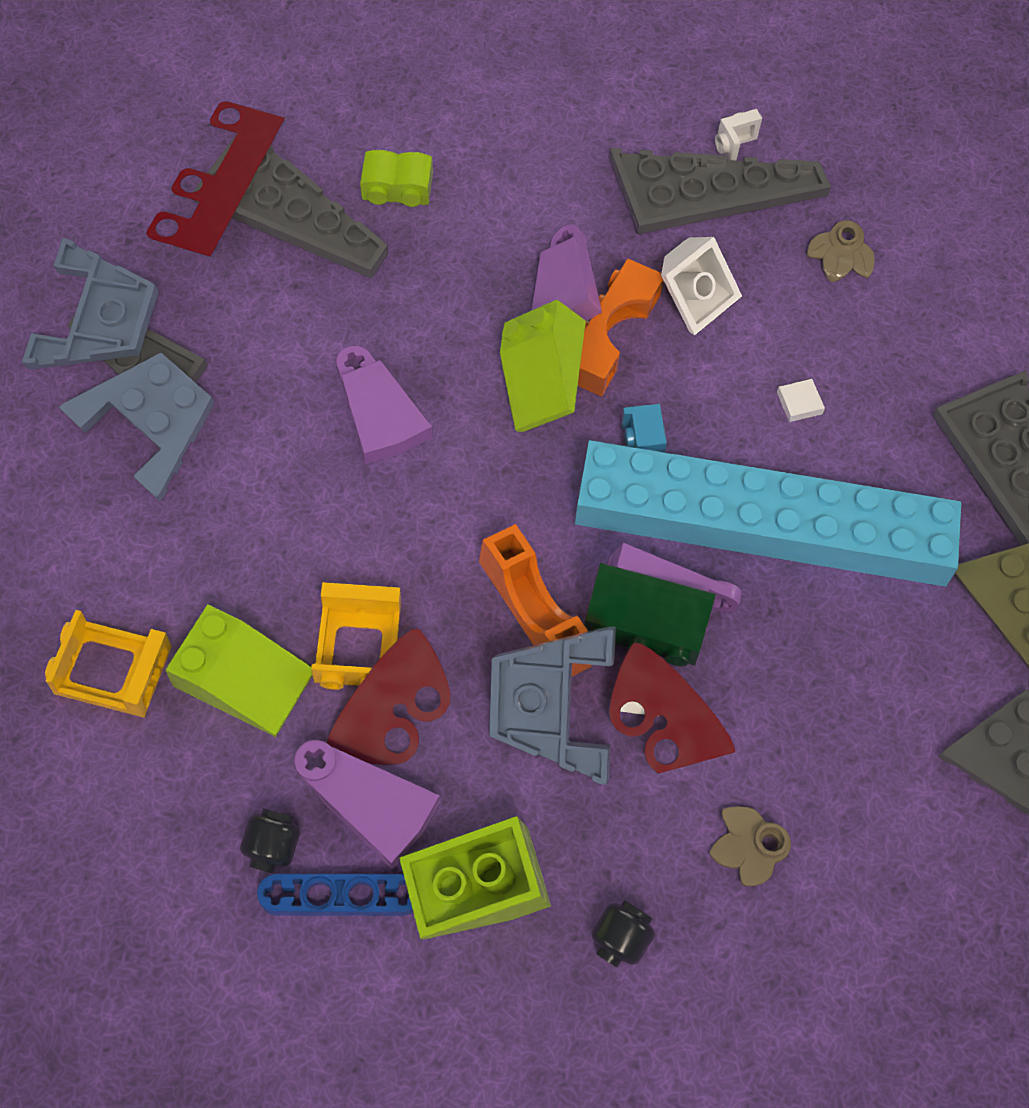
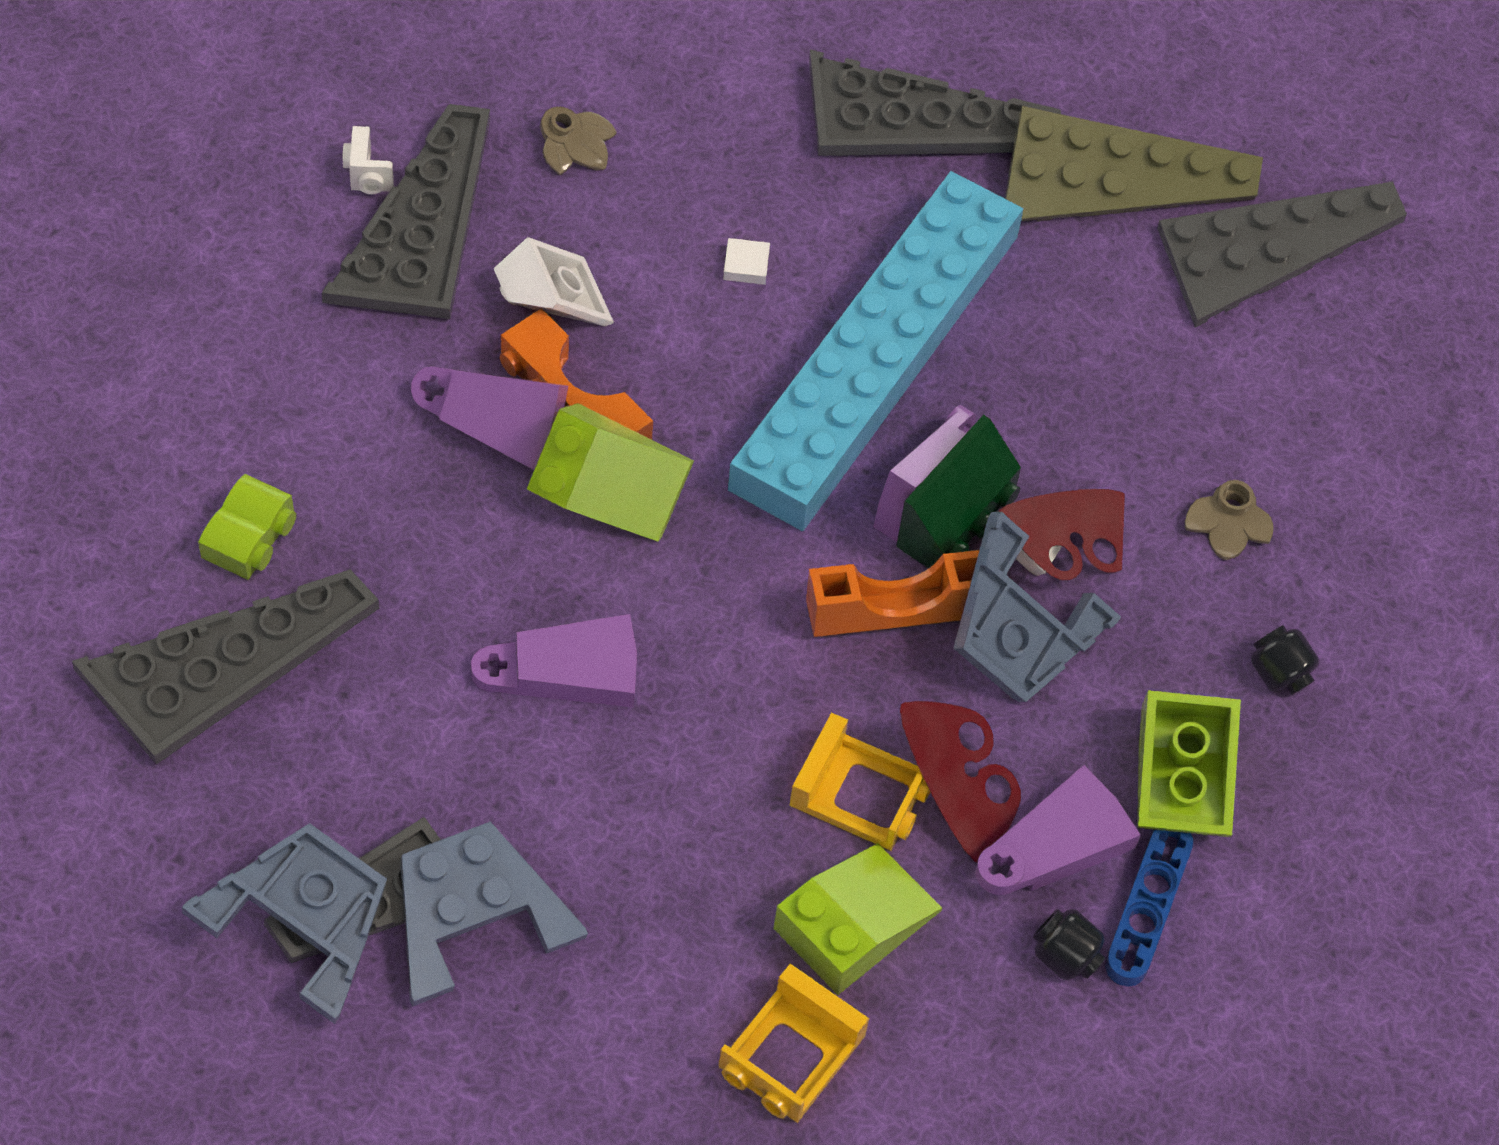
camera: 70 degrees left, 5 degrees down
(225, 189) = (164, 712): dark red piece -> none
(644, 427) = (730, 414): dark azure brick -> none

